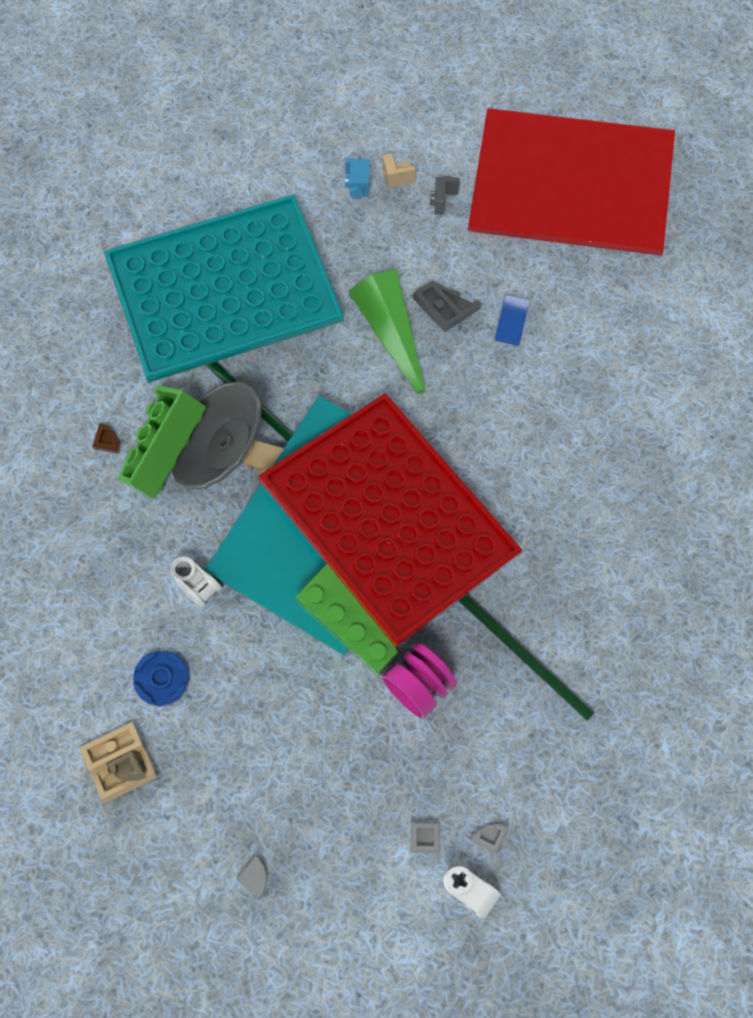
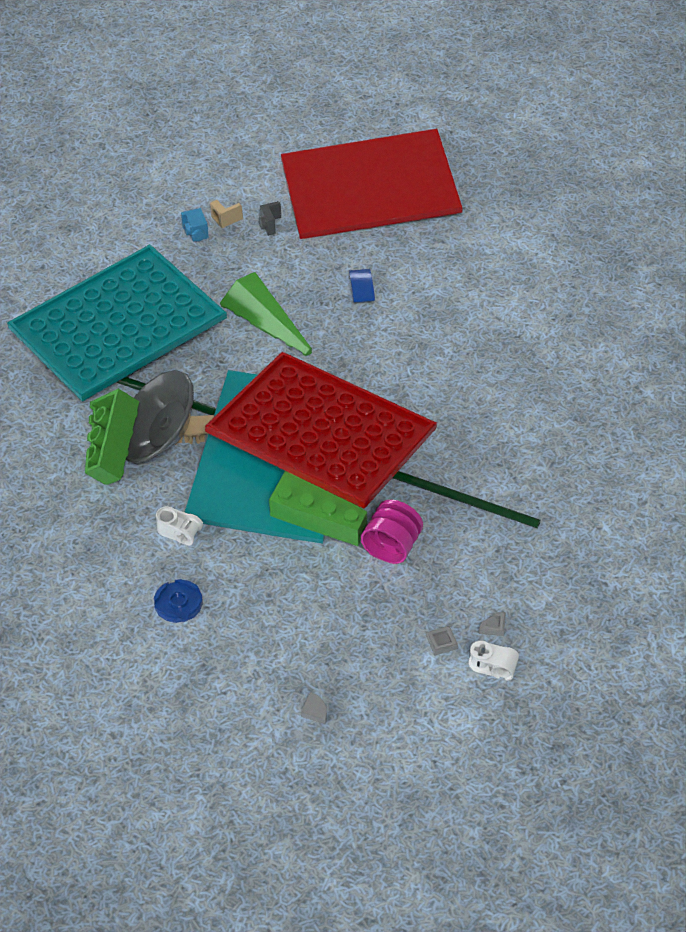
camera: 15 degrees left, 20 degrees down
(106, 440) = (61, 456): reddish brown tile -> none
(108, 748) = (167, 666): tan slope -> none
(126, 767) = (177, 664): dark tan tile -> none
(444, 305) = (302, 290): dark grey wing -> none

